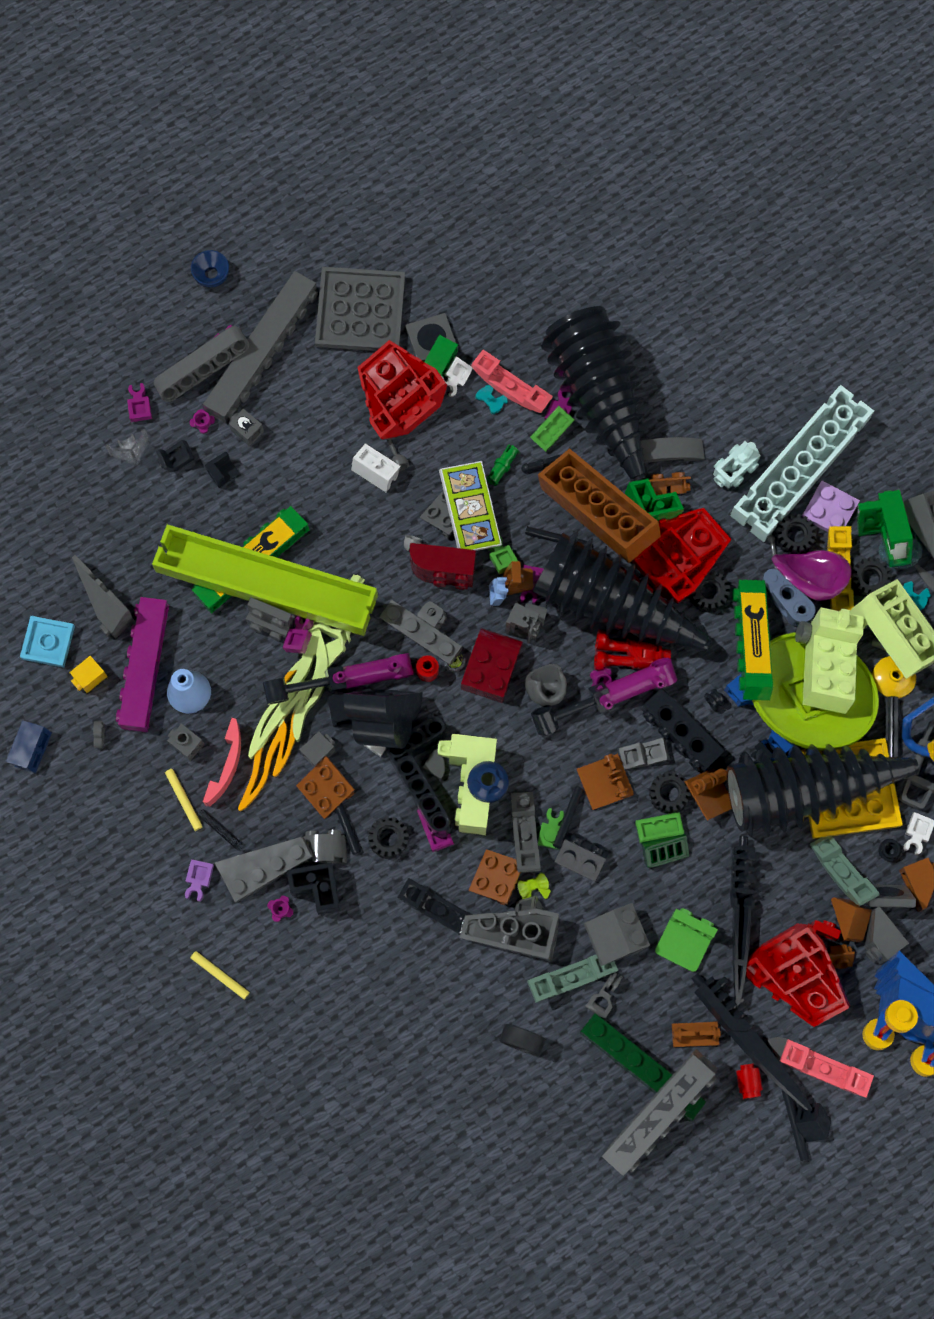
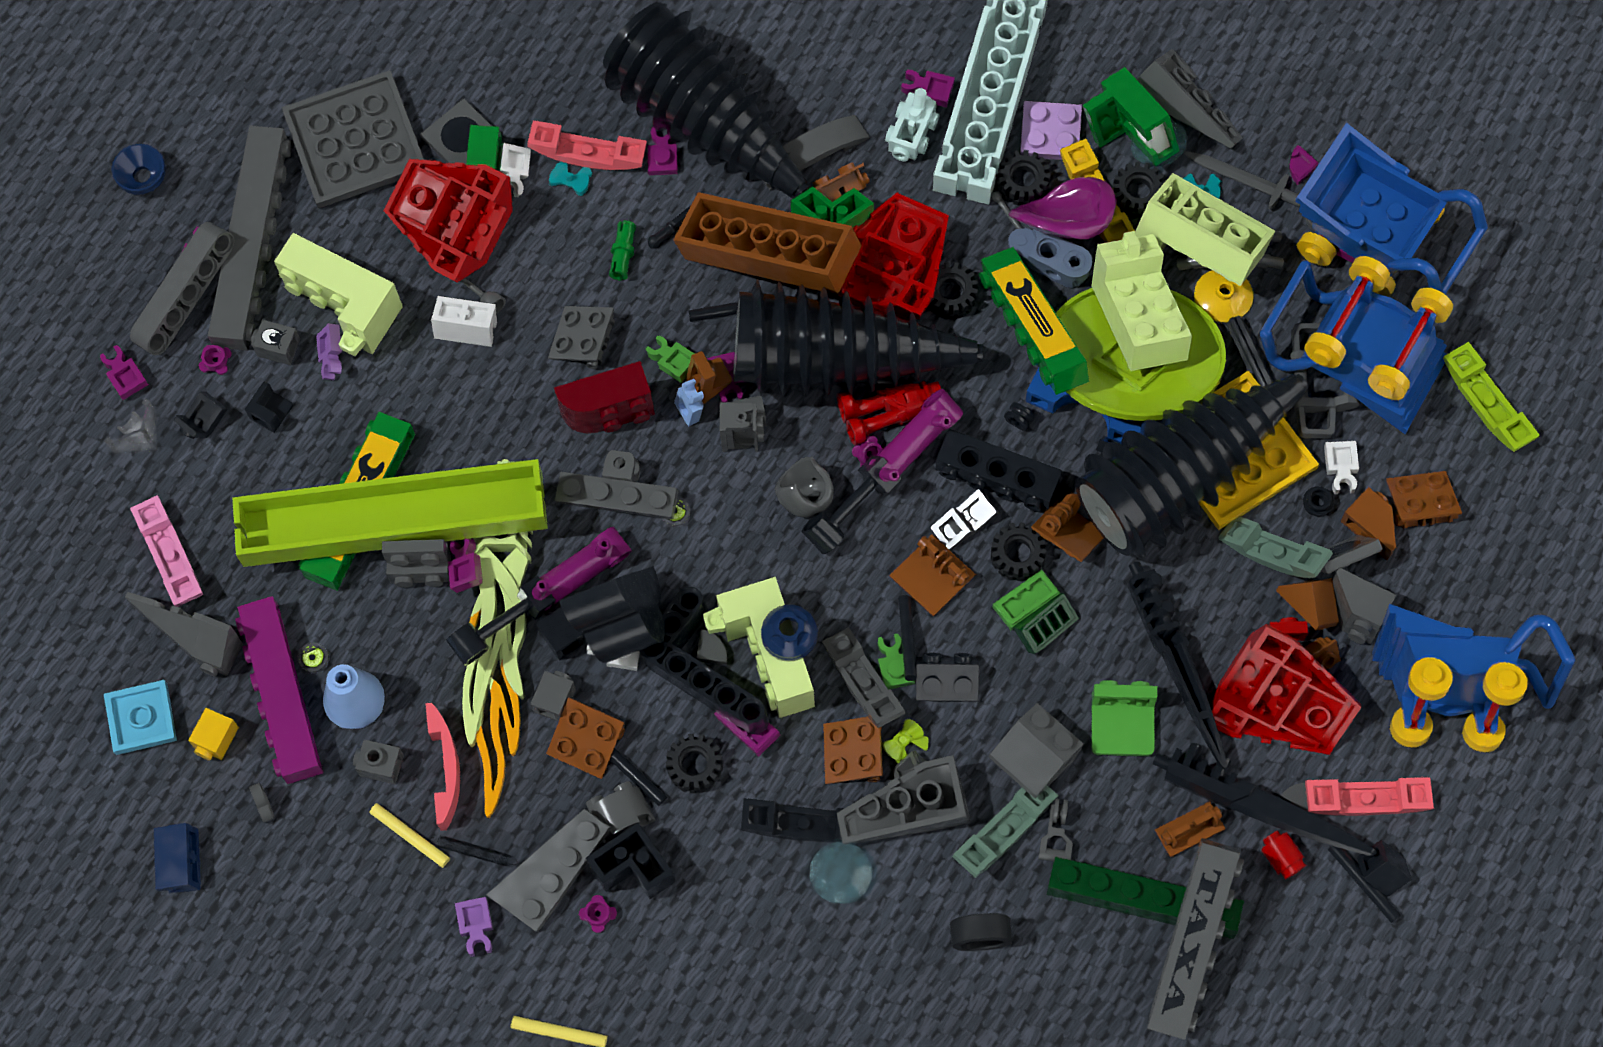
camera: 20 degrees left, 5 degrees down
(113, 538) = (167, 551): none -> bright pink slope
(175, 652) = (313, 658): none -> tile
(279, 446) = (328, 351): none -> medium lavender plate
(313, 423) = (360, 298): none -> yellowish green hinge
(411, 539) = (548, 392): light grey hinge -> none
(427, 675) = (648, 542): red brick -> none
(450, 955) = (840, 873): none -> clear light blue dish
(470, 506) = (607, 313): tile -> none
(491, 665) = (724, 497): dark red brick -> none
(552, 428) = (664, 179): bright green plate -> none
(764, 442) = (936, 85): none -> magenta plate
(803, 632) = (1089, 287): dark grey tile -> none

